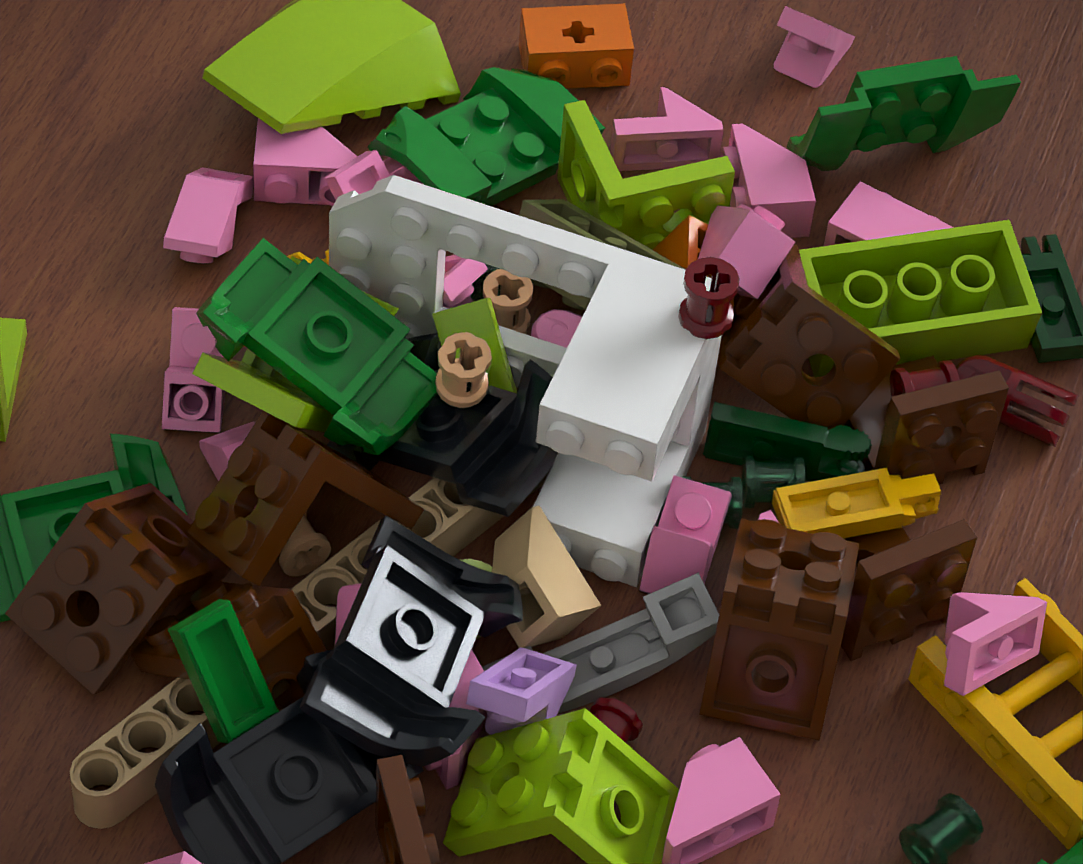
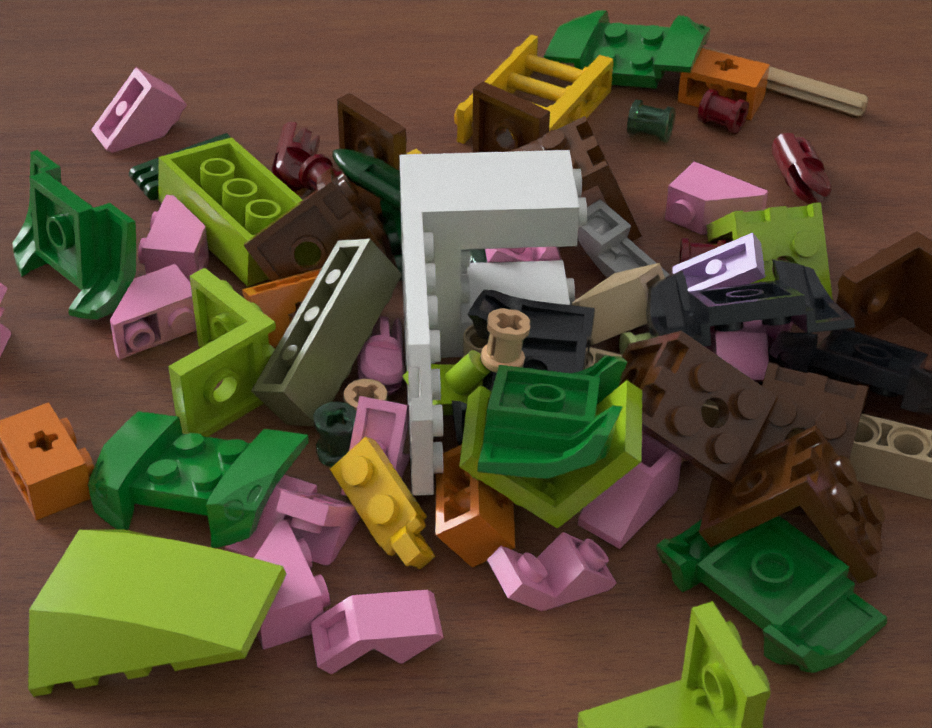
camera: 110 degrees left, 10 degrees down
(223, 670) = (858, 372): green tile -> none
(672, 139) = (123, 374): bright pink slope -> none
(722, 290) = (439, 137): dark red bush -> none
(749, 242) = (277, 254): bright pink slope -> none
(852, 417) = (371, 175): none -> dark green piece
(990, 637) = (543, 90): bright pink slope -> none

